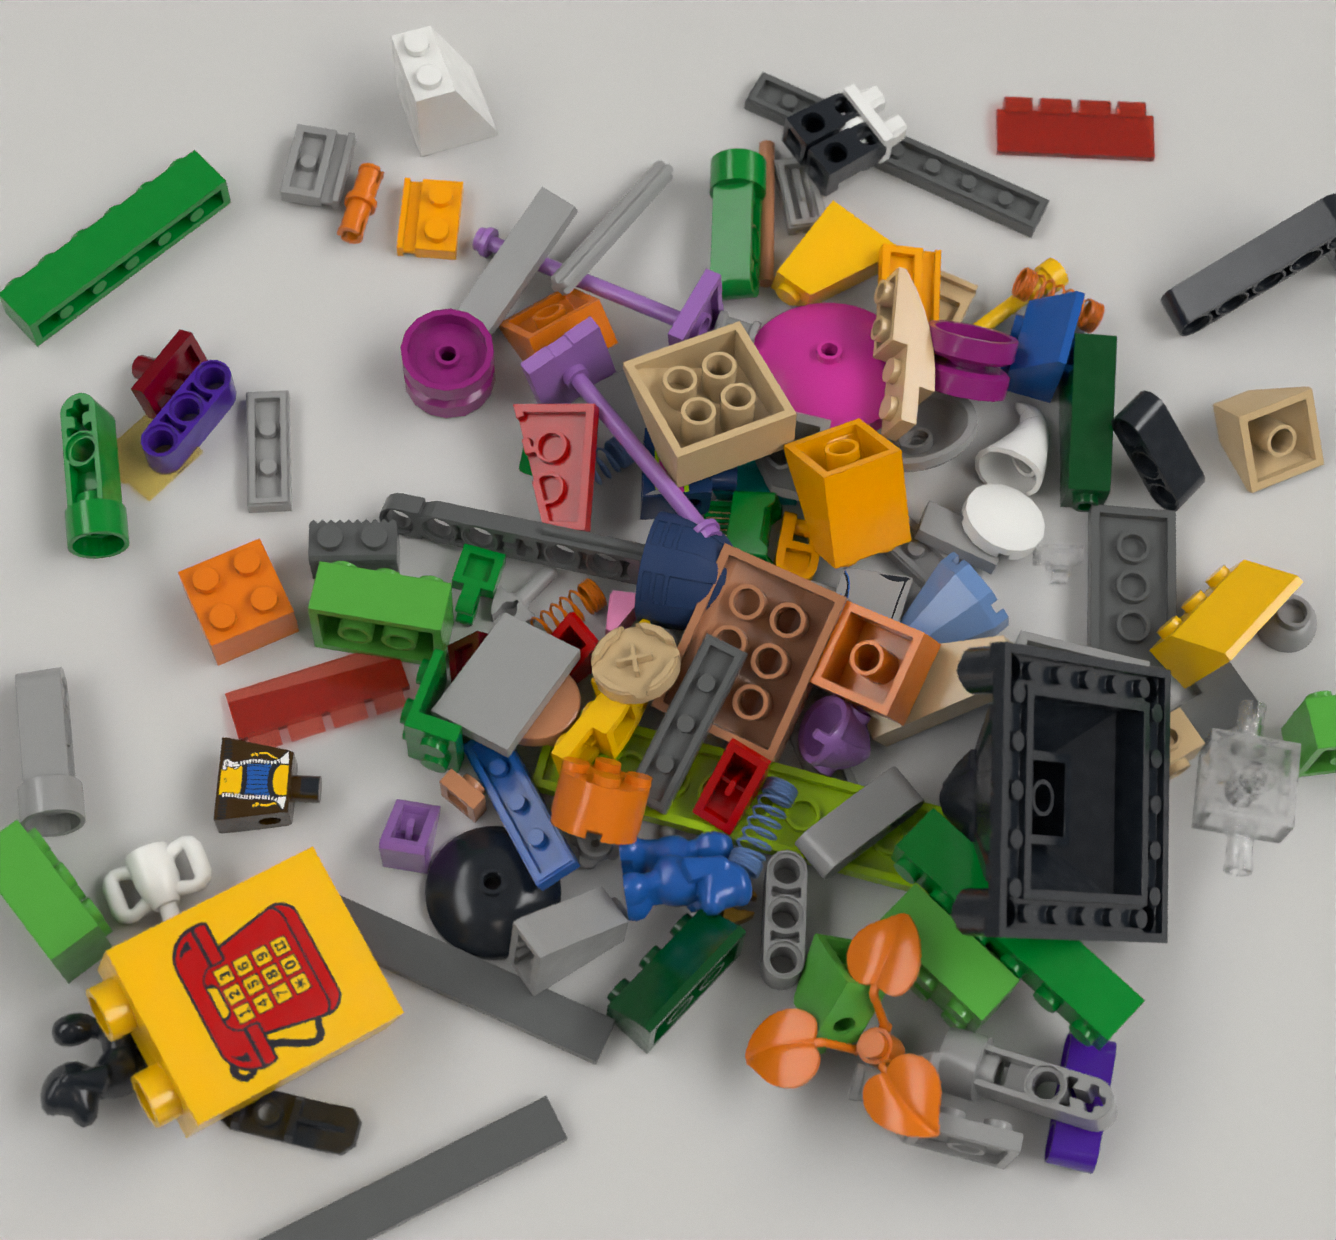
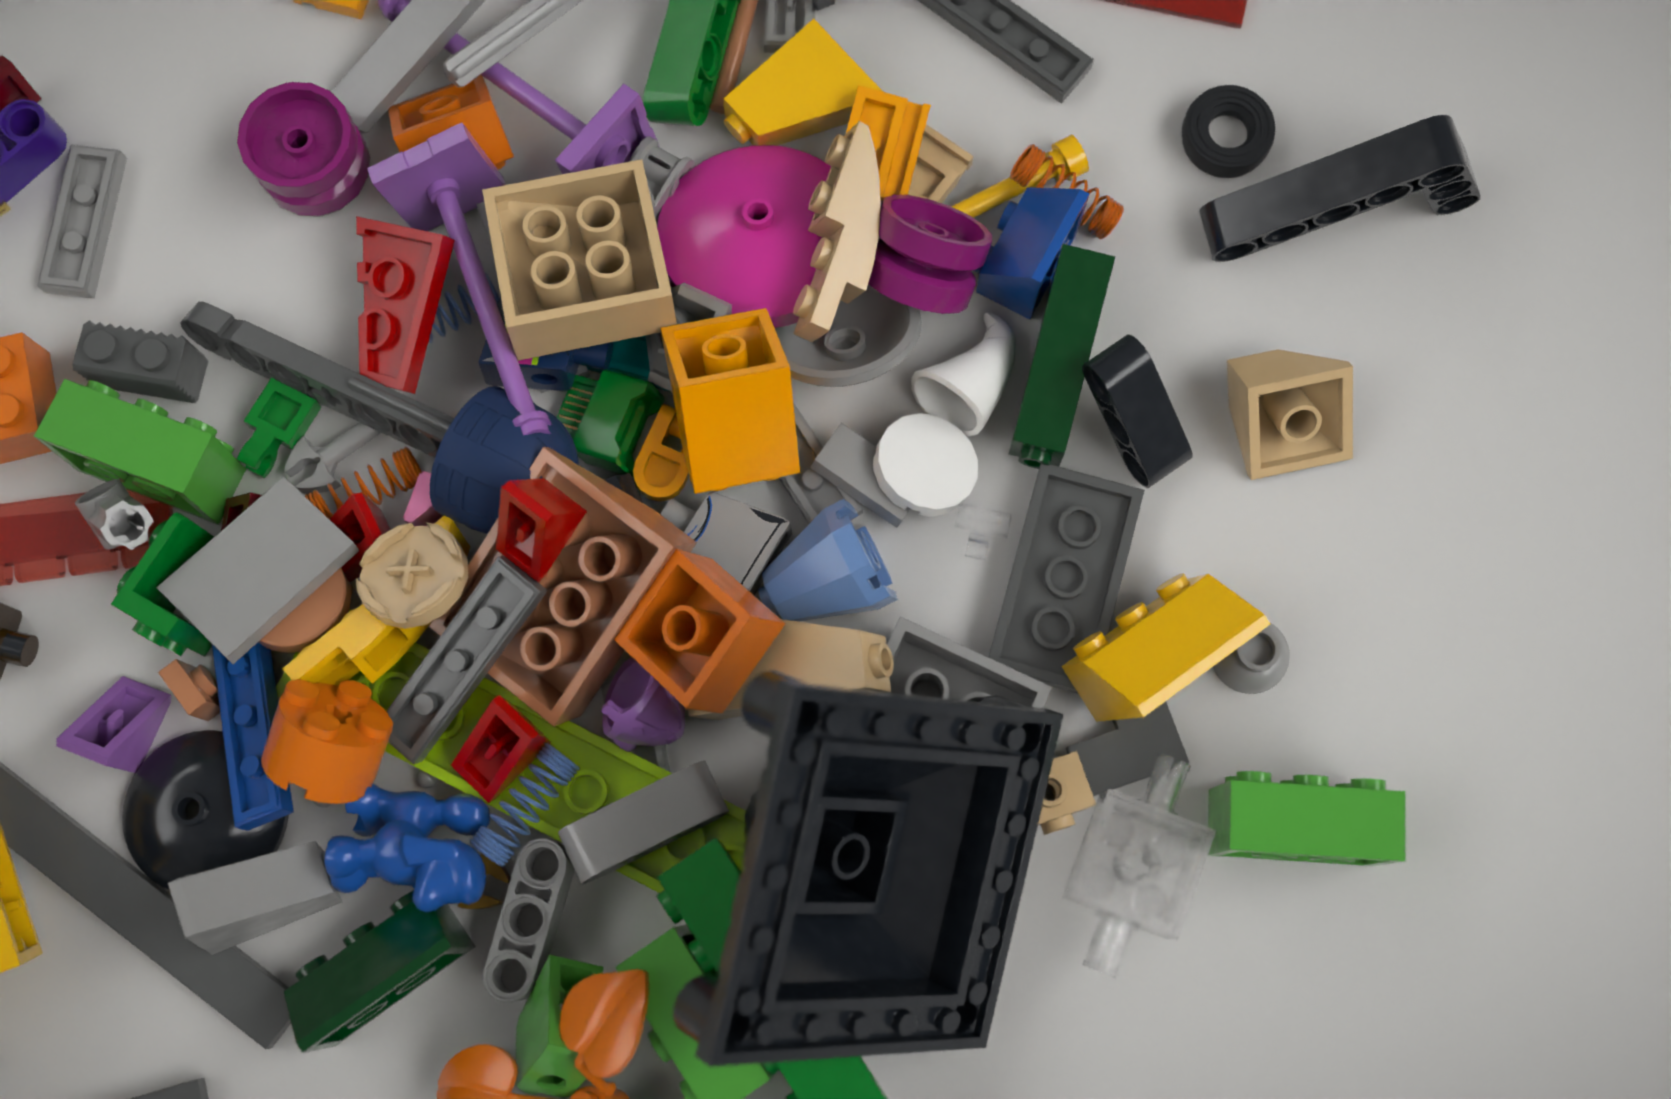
camera: 20 degrees right, 10 degrees up
(378, 666) = (115, 515): none -> light grey piece
(733, 604) = (535, 524): none -> red slope
(1160, 259) = (1236, 102): none -> black tyre

